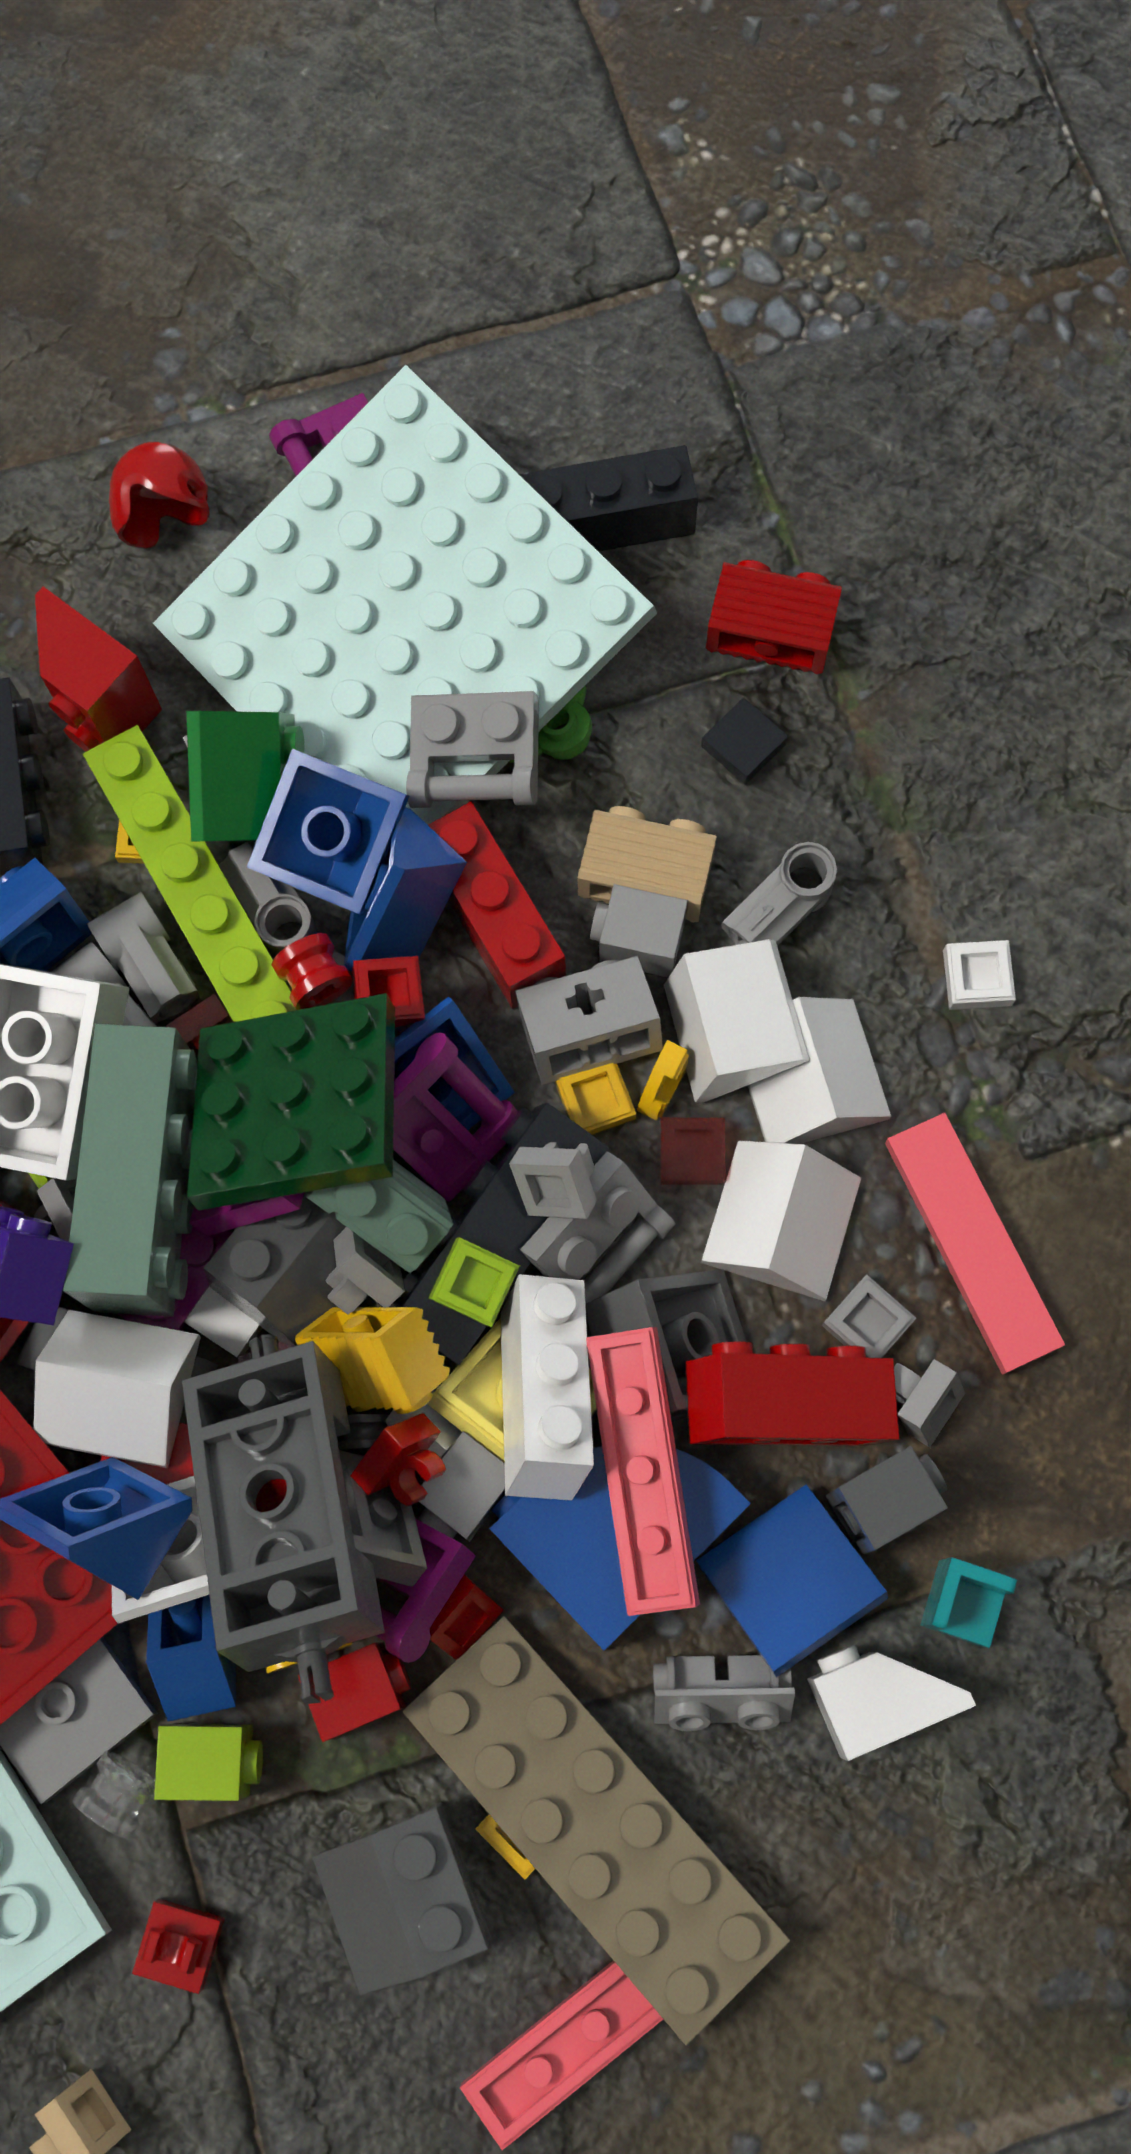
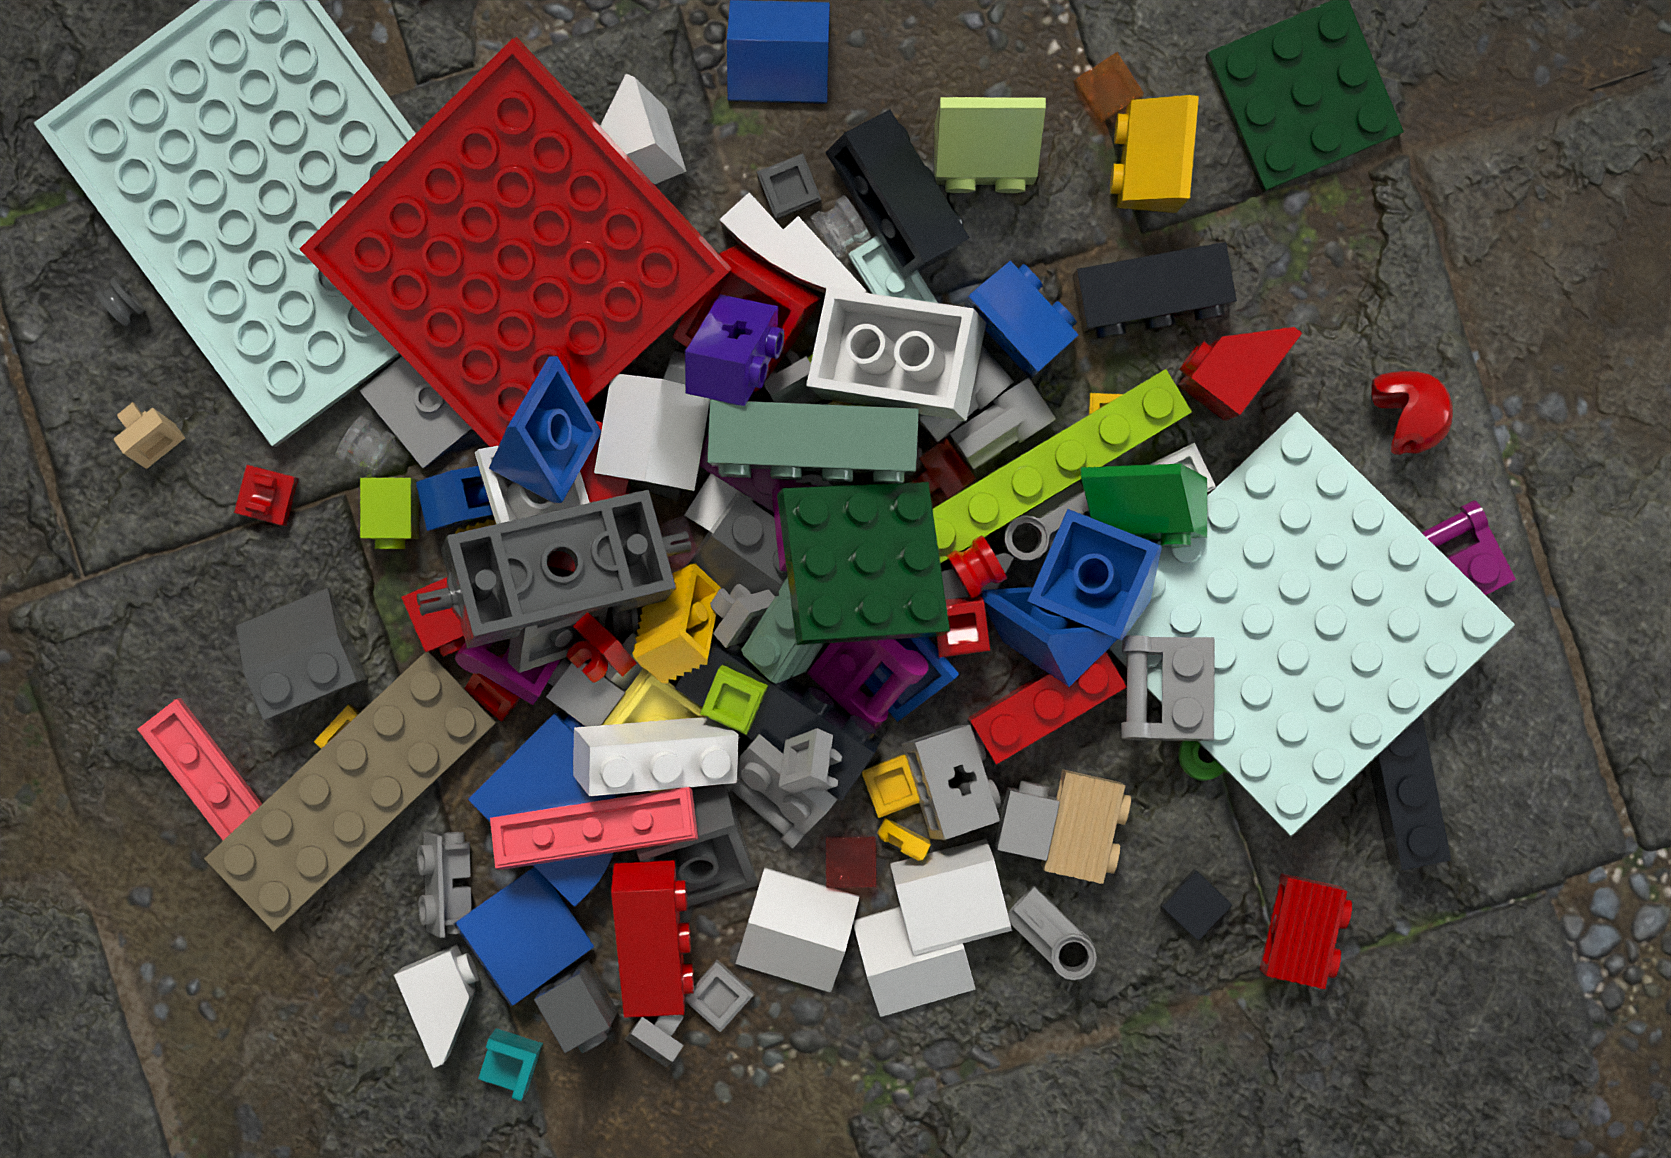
camera: 85 degrees right, 15 degrees up
(974, 1244) = (780, 1077): coral tile -> none
(979, 975) = (997, 1089): white tile -> none

